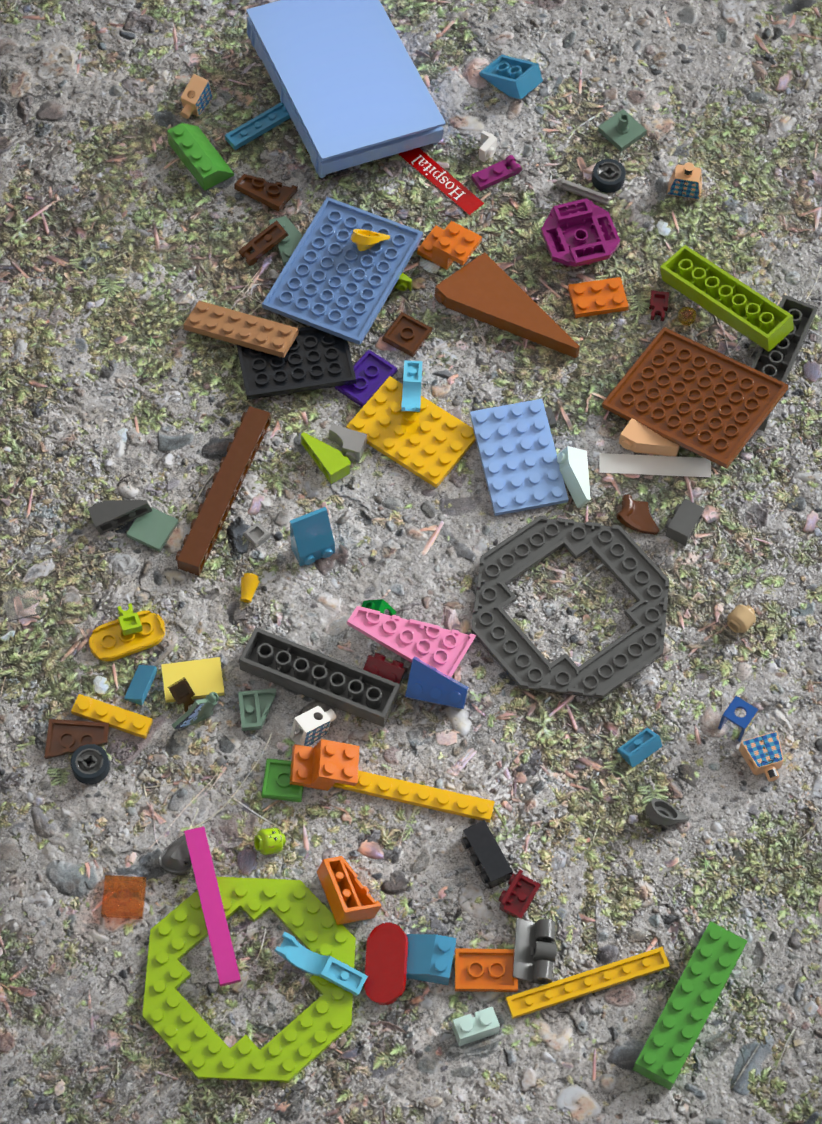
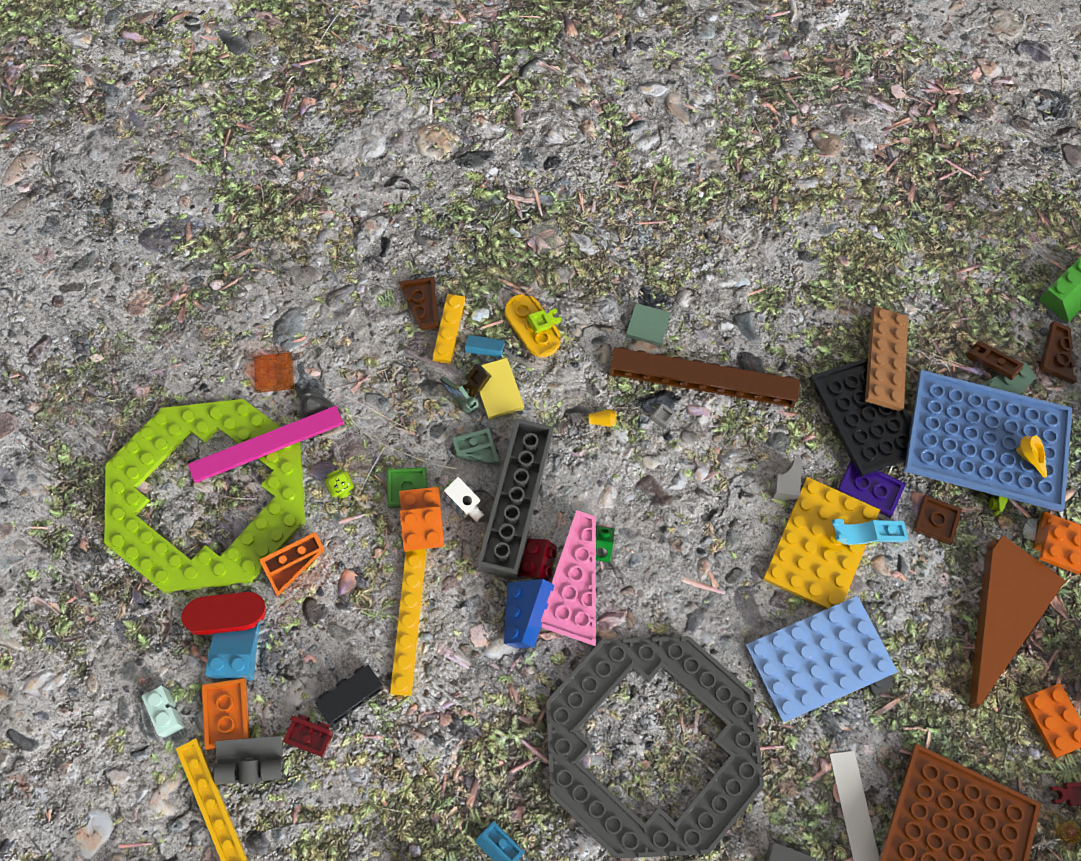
camera: 80 degrees right, 5 degrees up
(98, 769) = (403, 325): wheel -> none
(114, 513) = (649, 284): dark grey slope -> none
(312, 537) = (664, 462): dark azure slope -> none
(321, 965) = (211, 554): medium azure piece -> none
(327, 458) = (759, 470): lime slope -> none
(575, 474) = (816, 724): light aqua slope -> none
(637, 516) = (784, 805): reddish brown arm -> none
(644, 440) = (883, 796): light nougat slope -> none

